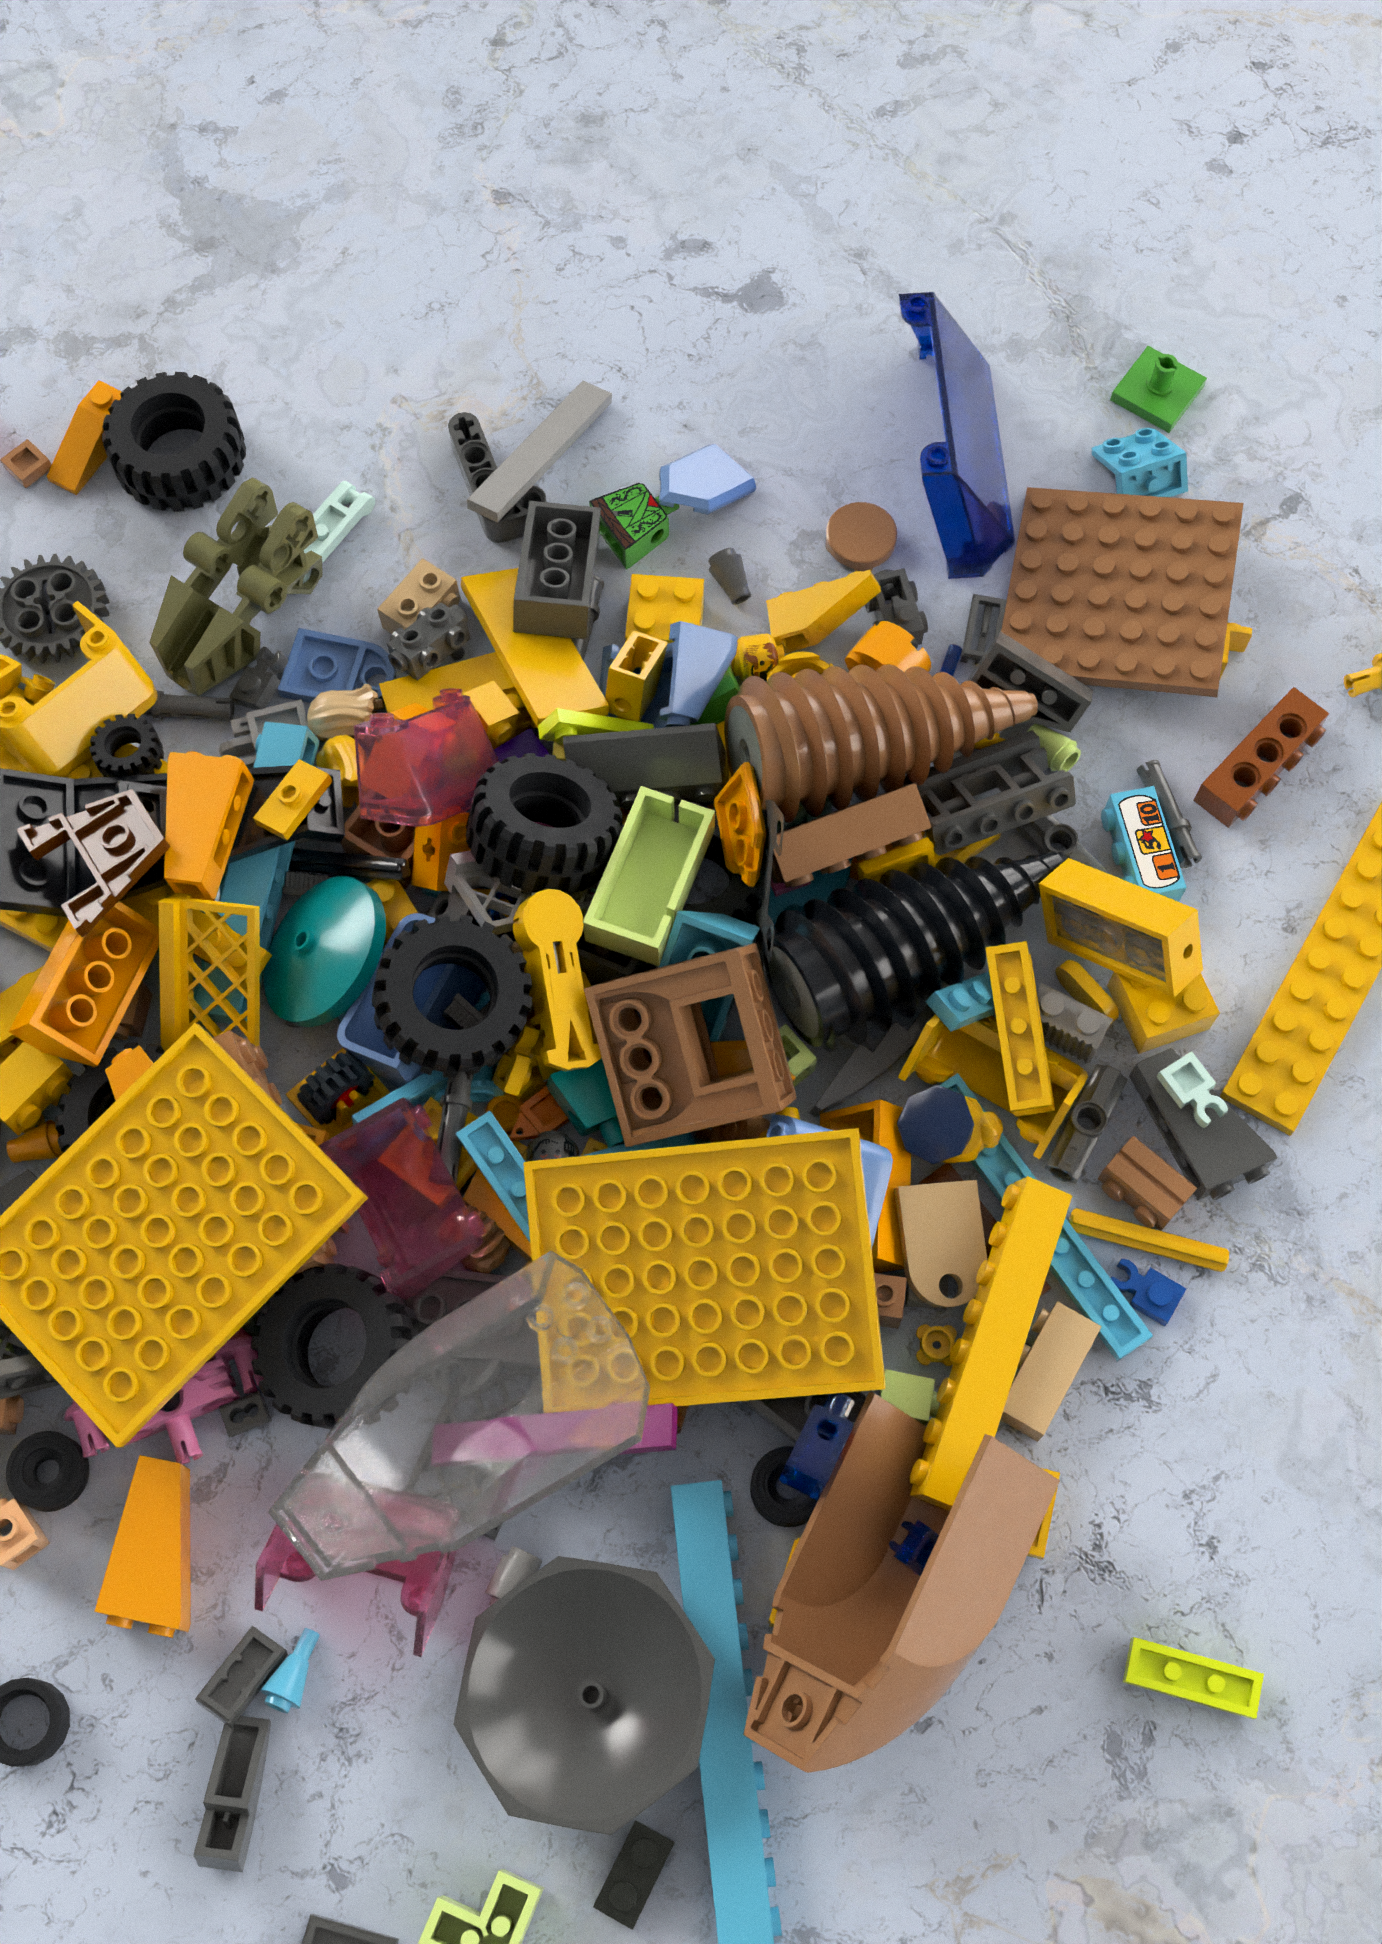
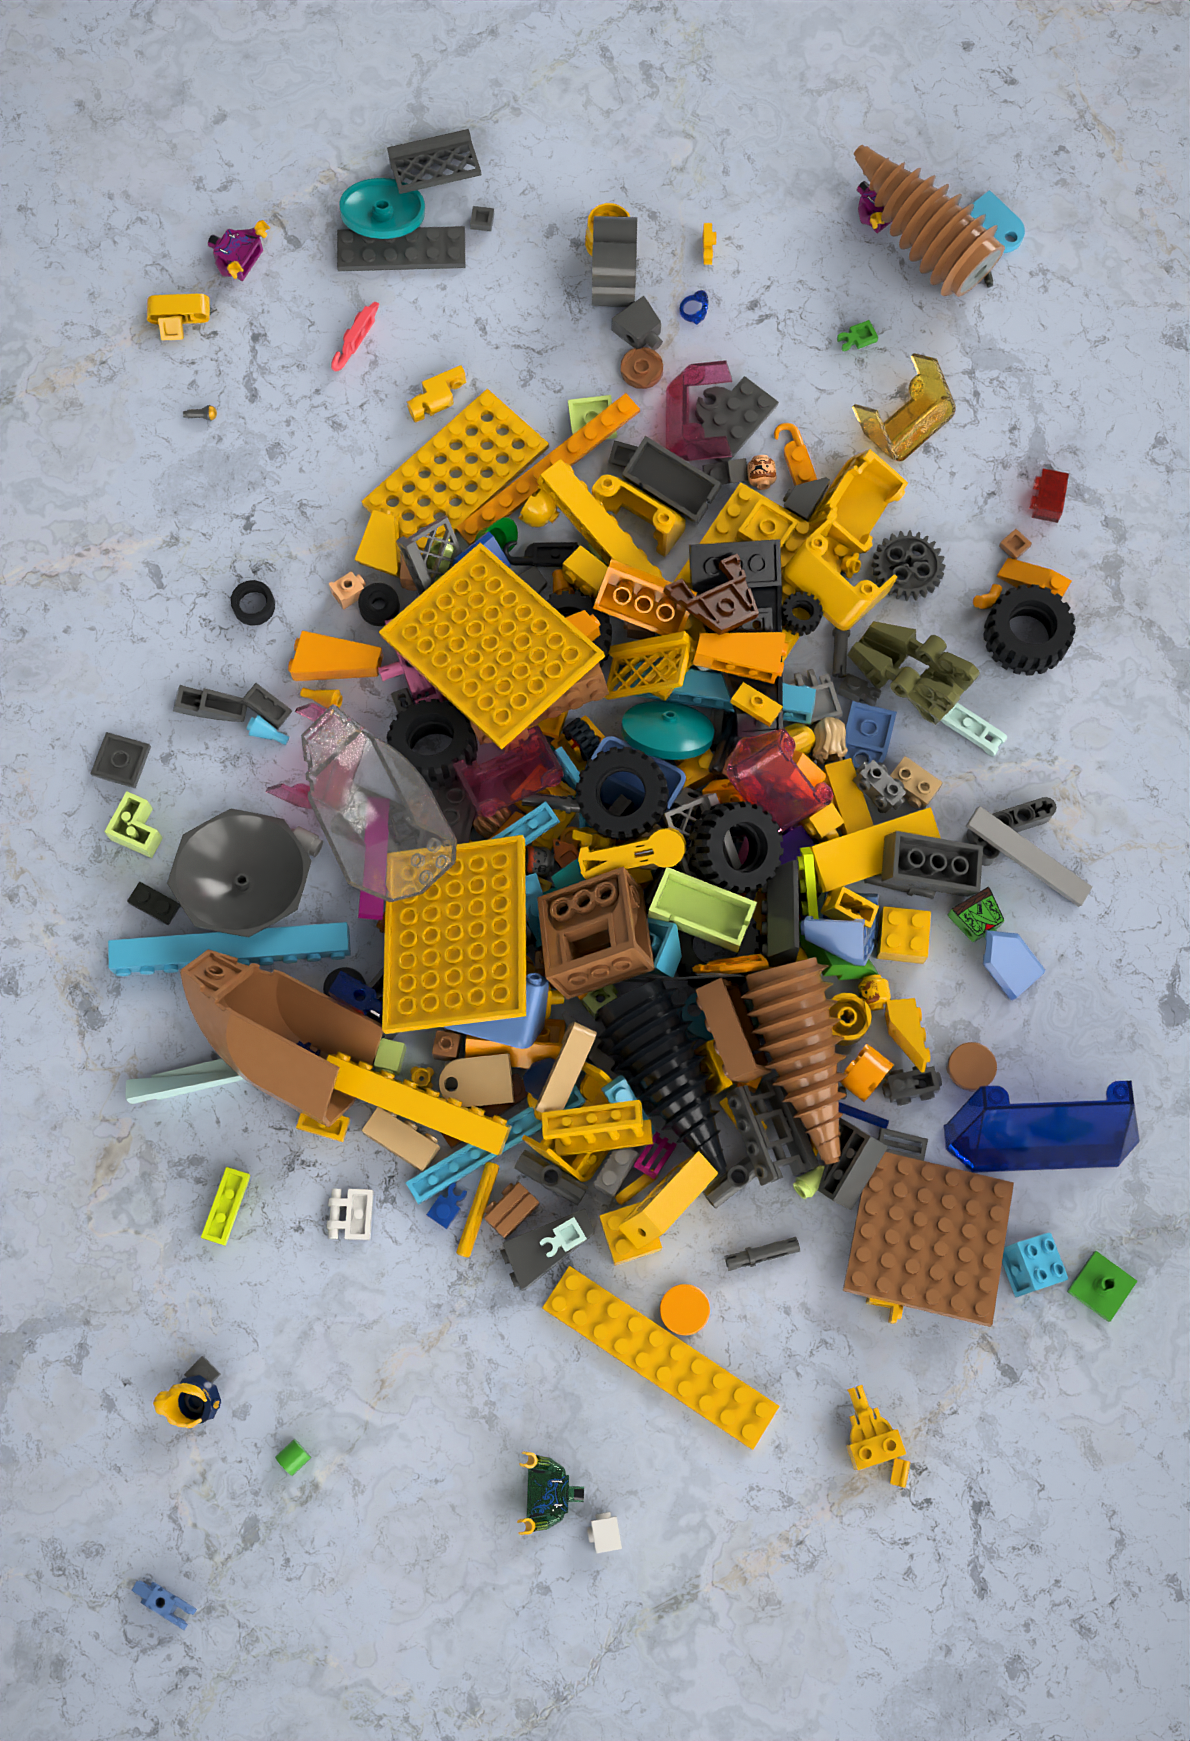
camera: 90 degrees right, 5 degrees up
(116, 501) = (987, 600): none -> light orange arm
(231, 1558) = (323, 697): none -> yellow cone
(730, 574) = (939, 979): dark grey cone -> none
(925, 1079) = (566, 1069): none -> tan beam
(977, 1789) = (180, 1081): none -> light aqua wedge
(1051, 958) = (663, 1143): none -> dark pink tile
(1143, 842) = (736, 1232): brick -> none
(1182, 1438) = (358, 1214): none -> white plate
(1267, 921) = (684, 1309): none -> light orange tile
(1293, 715) = (835, 1343): dark orange brick -> none

